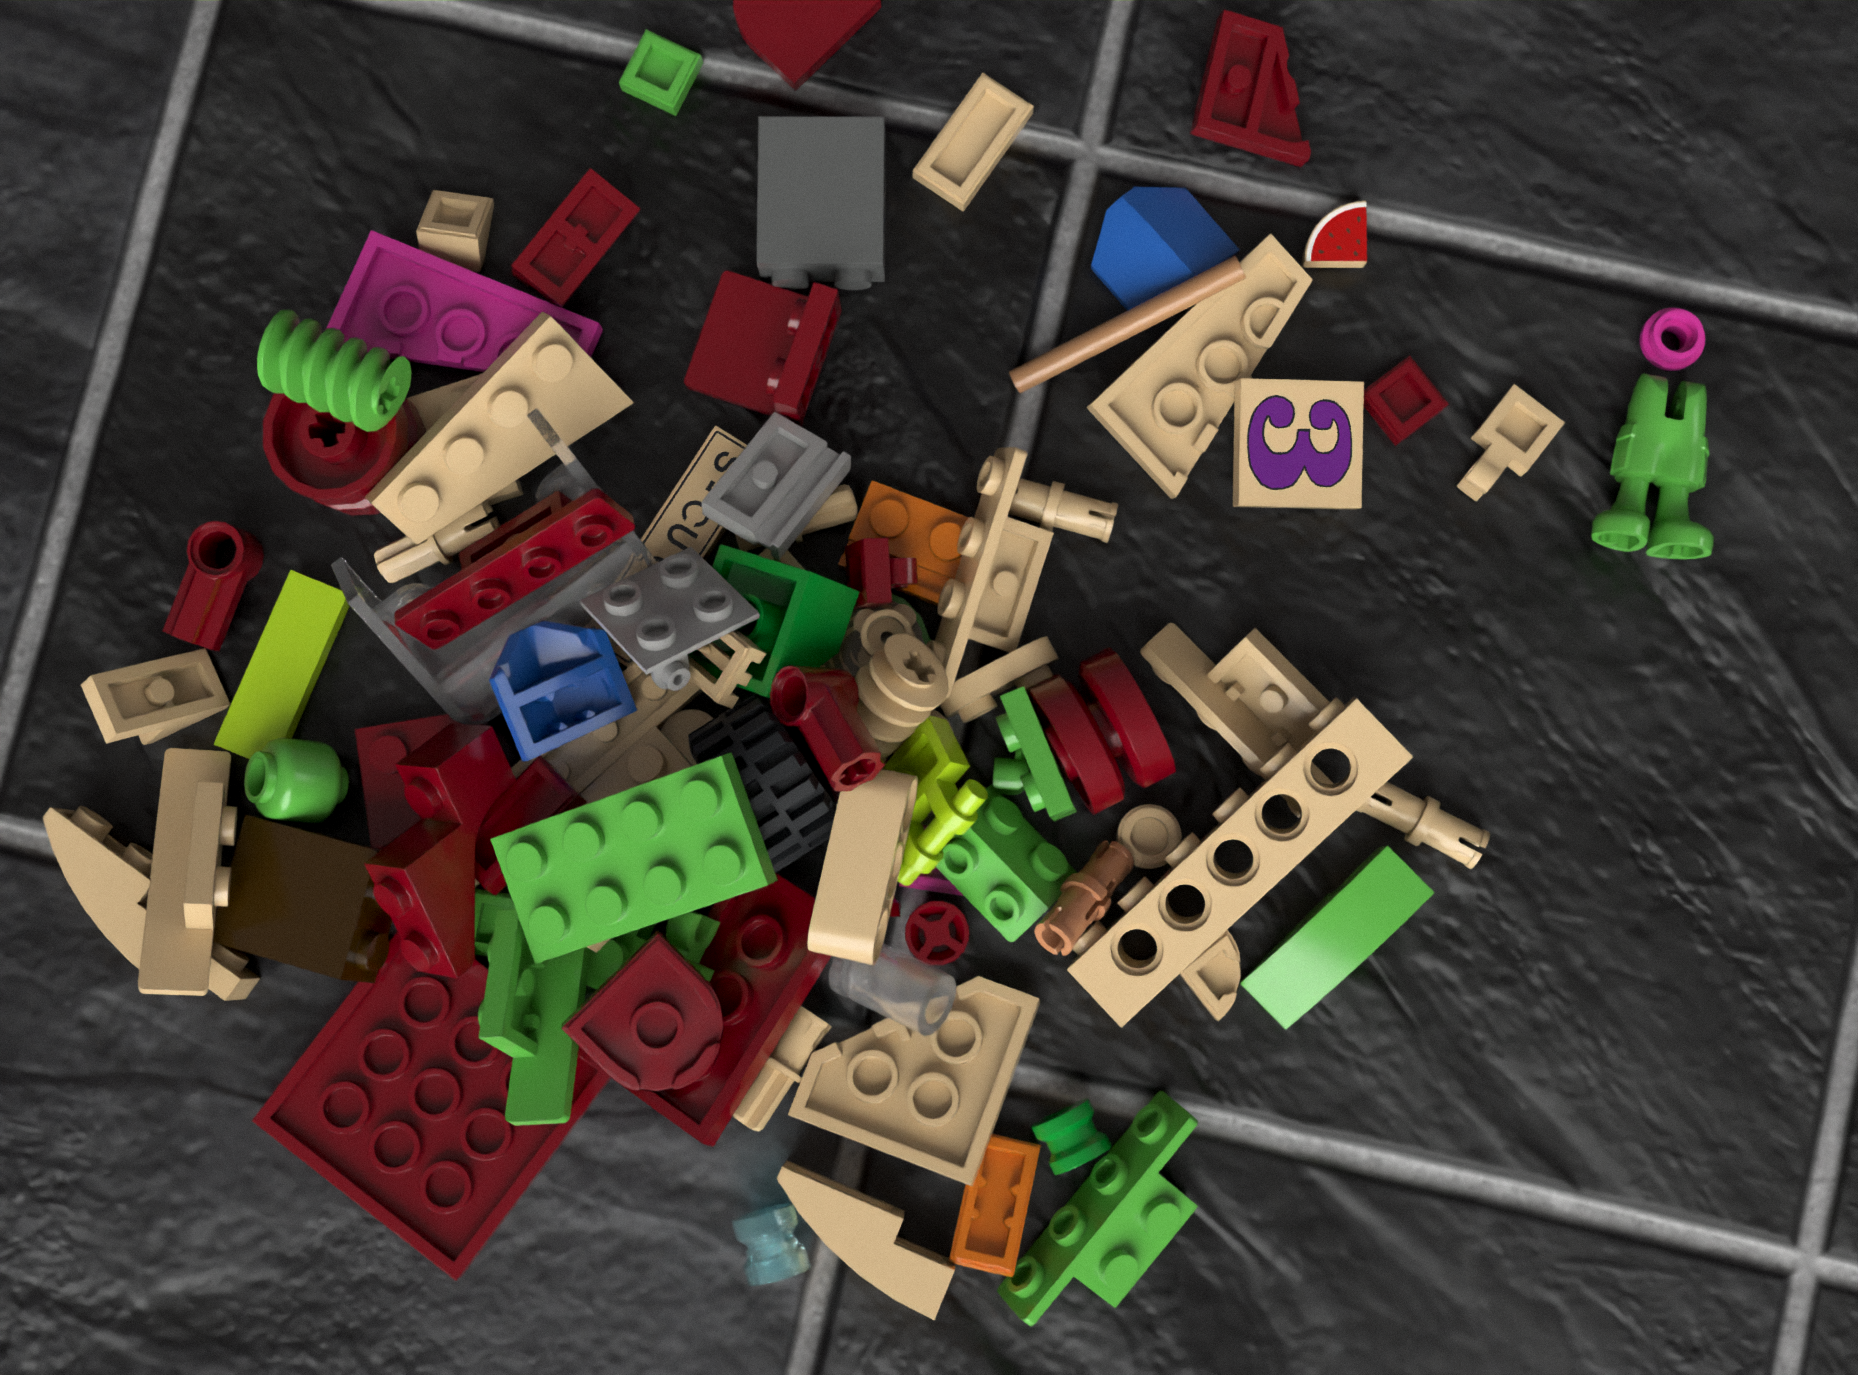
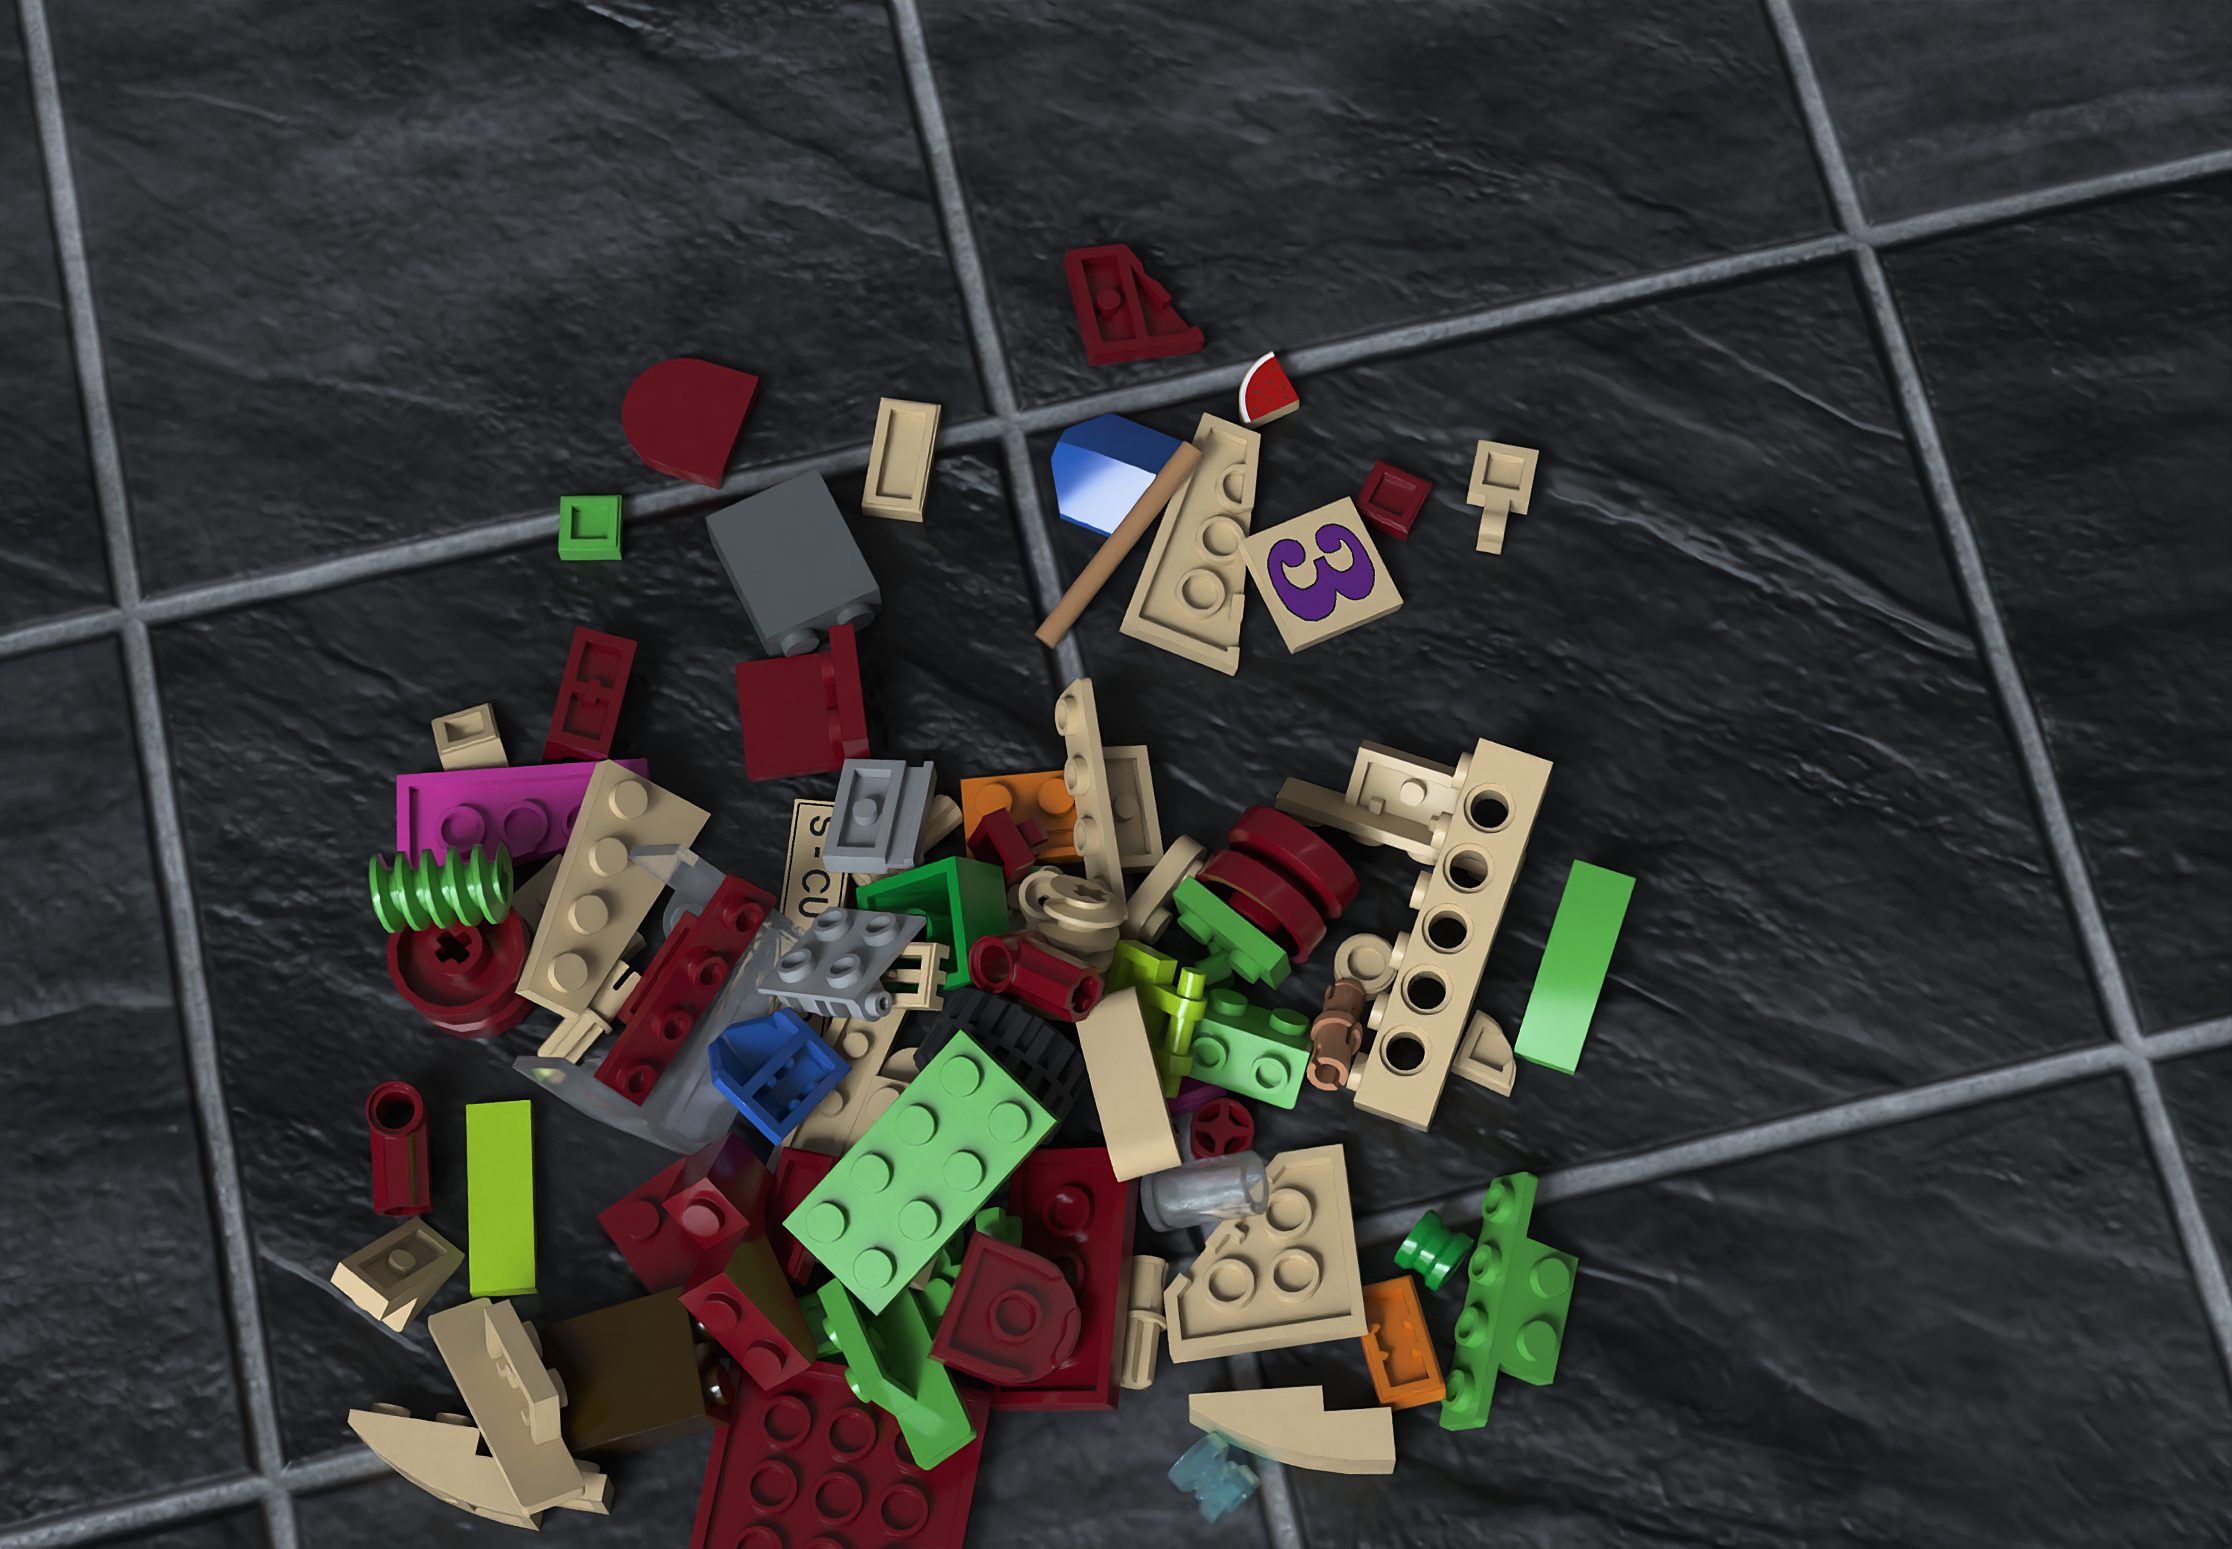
camera: 30 degrees left, 15 degrees down
(295, 781) = (566, 1279): bright green head -> none
(1063, 509) = (1148, 724): tan pin -> none
(1426, 823) = (1597, 837): tan pin -> none
(1669, 455) = (1645, 438): bright green piece -> none
(1684, 326) = (1596, 329): dark pink plate -> none

